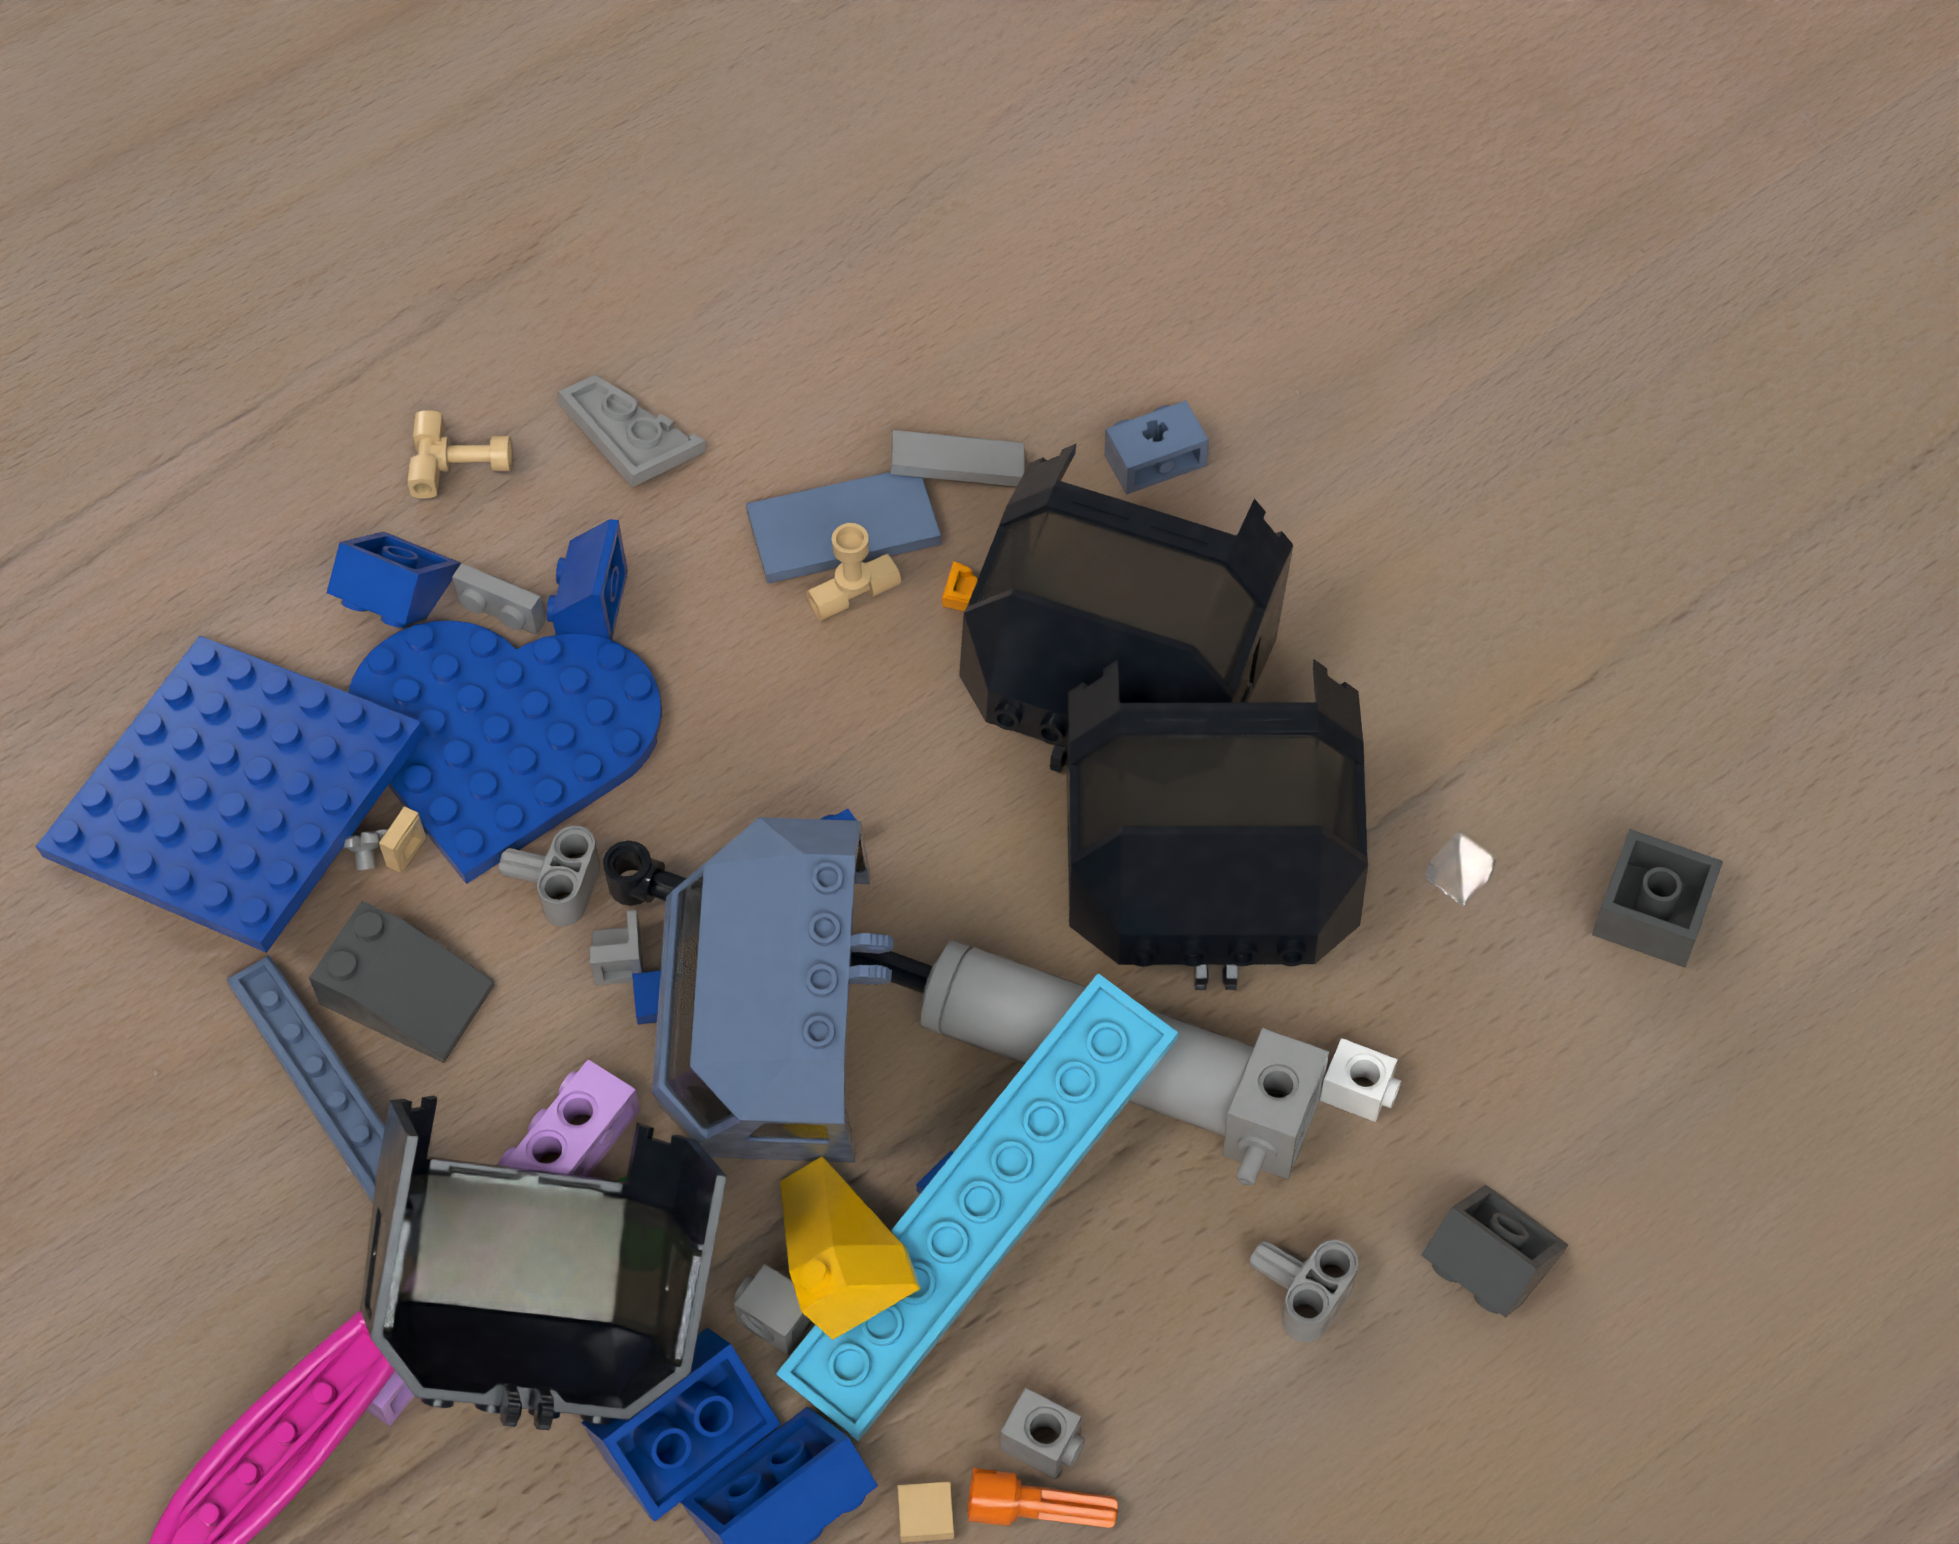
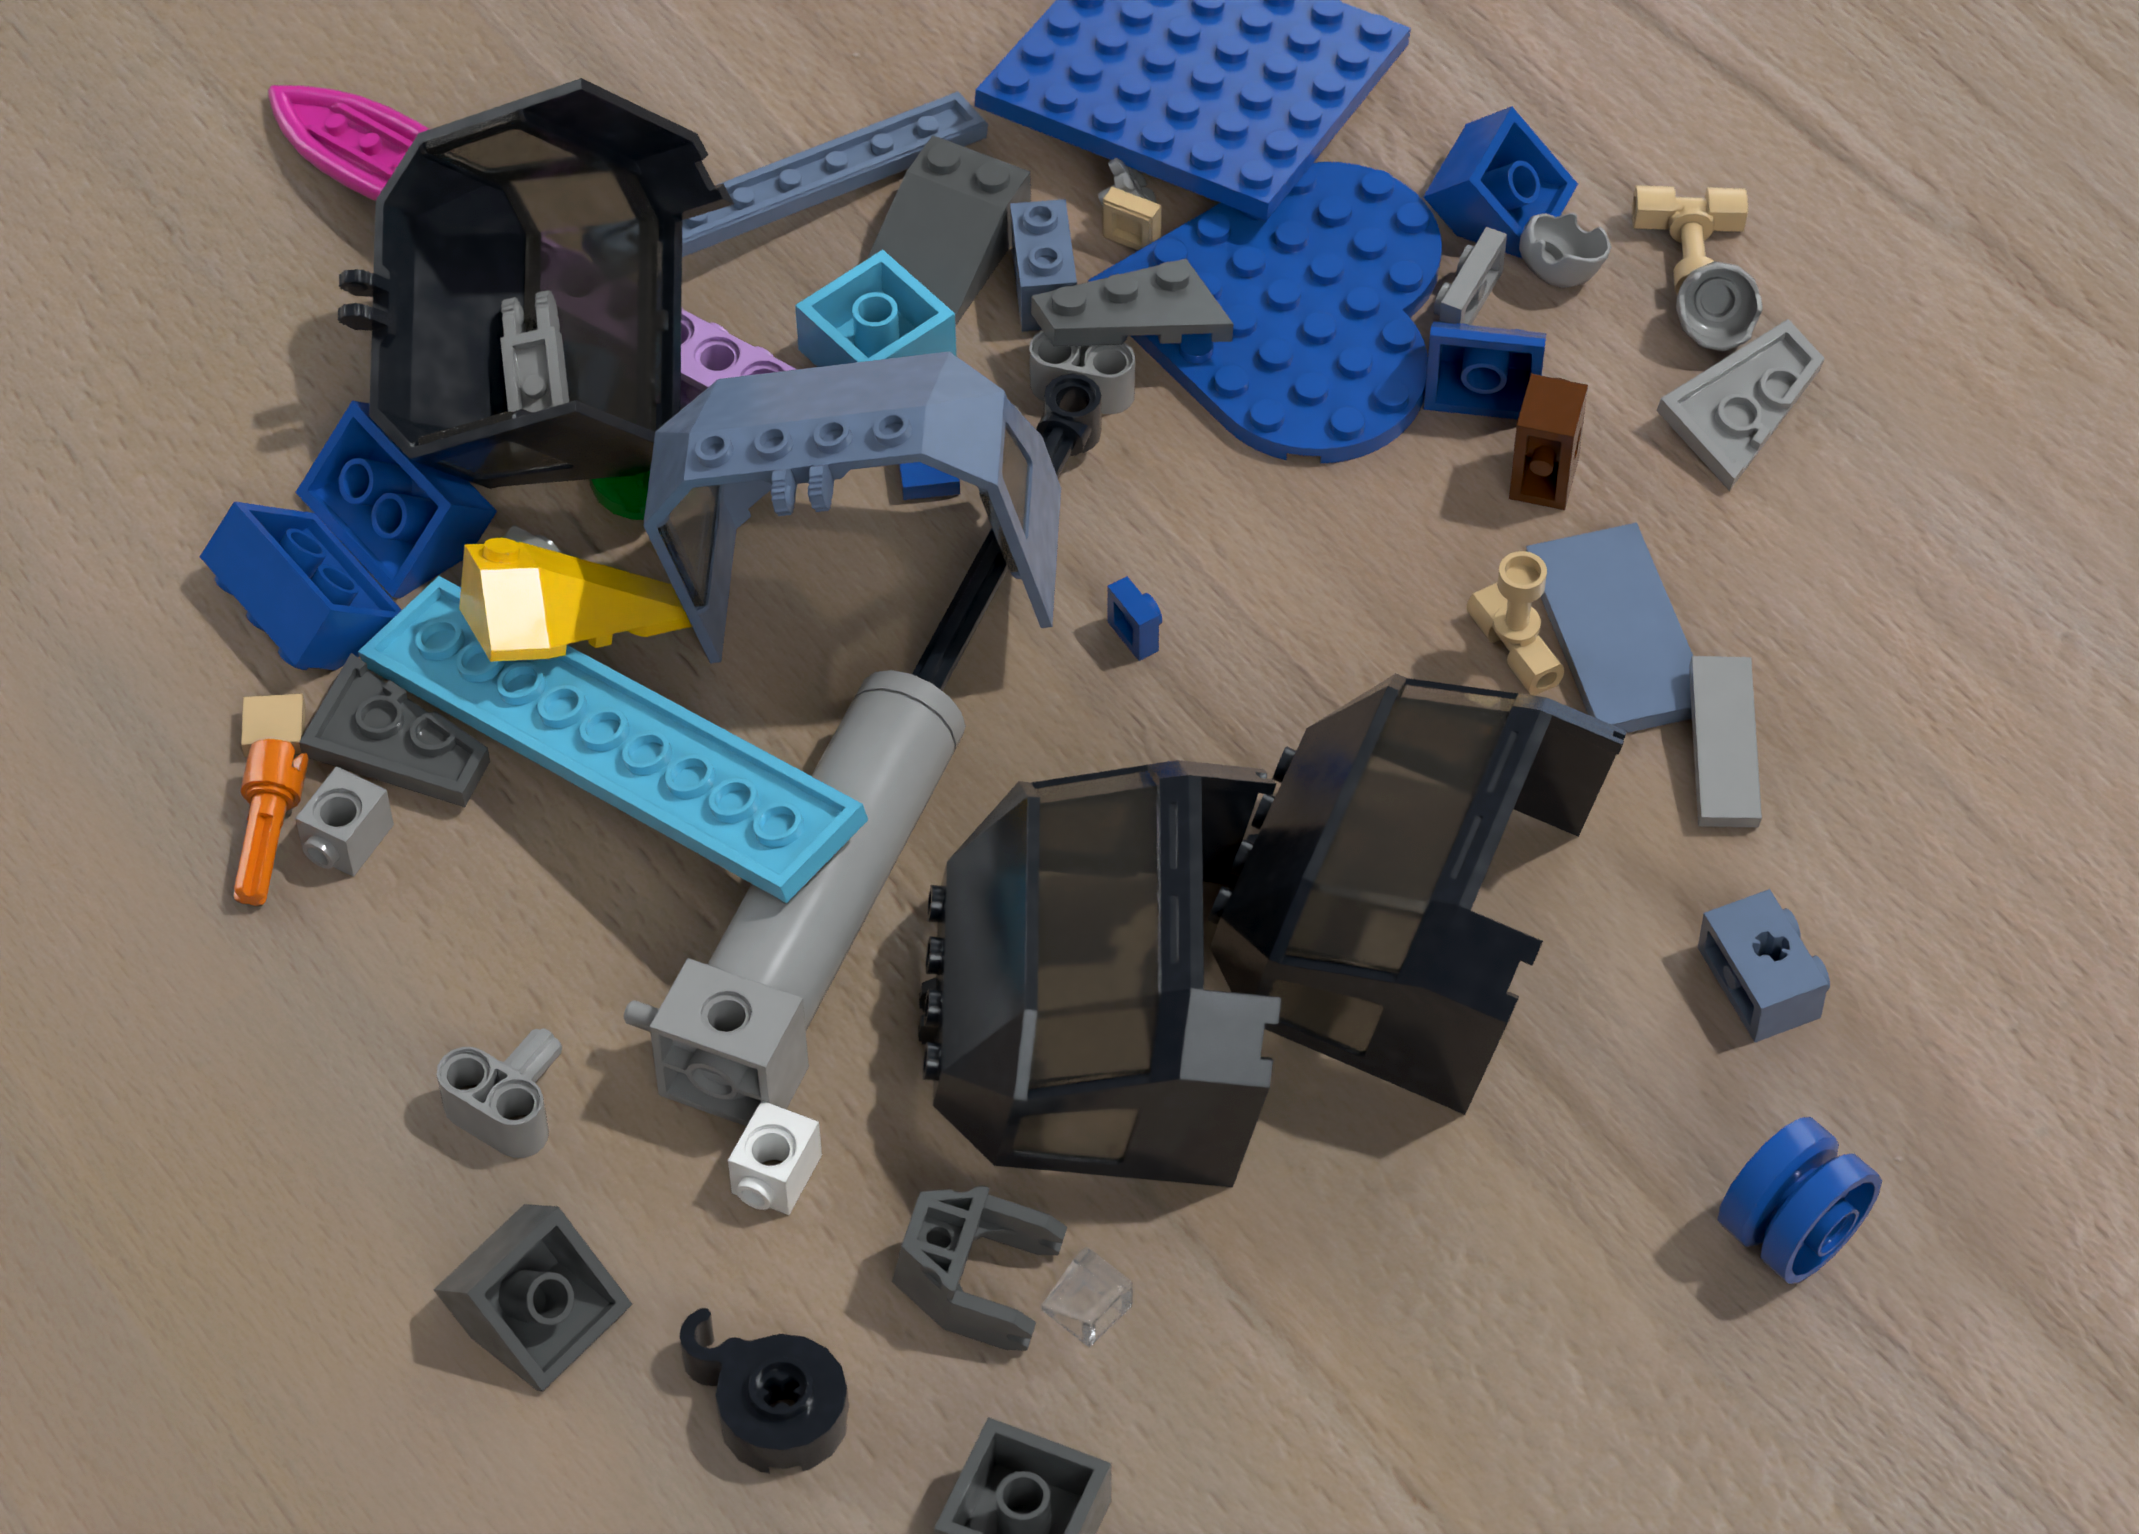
camera: 90 degrees right, 5 degrees down
(452, 901) = (1040, 252): none -> sand blue brick
(469, 533) = (1561, 250): none -> light grey hair
(521, 823) = (1147, 301): none -> dark grey wing
(523, 1026) = (873, 316): none -> medium azure brick
(540, 436) = (1719, 306): none -> light grey hair
(567, 1292) = (533, 358): none -> light grey hinge
(681, 542) = (1548, 441): none -> reddish brown brick
(945, 1407) = (389, 738): none -> dark grey wing
(1368, 425) = (1799, 1199): none -> blue wheel
(1469, 946) = (938, 1250): none -> dark grey piece
(1556, 1092) = (760, 1373): none -> black piece

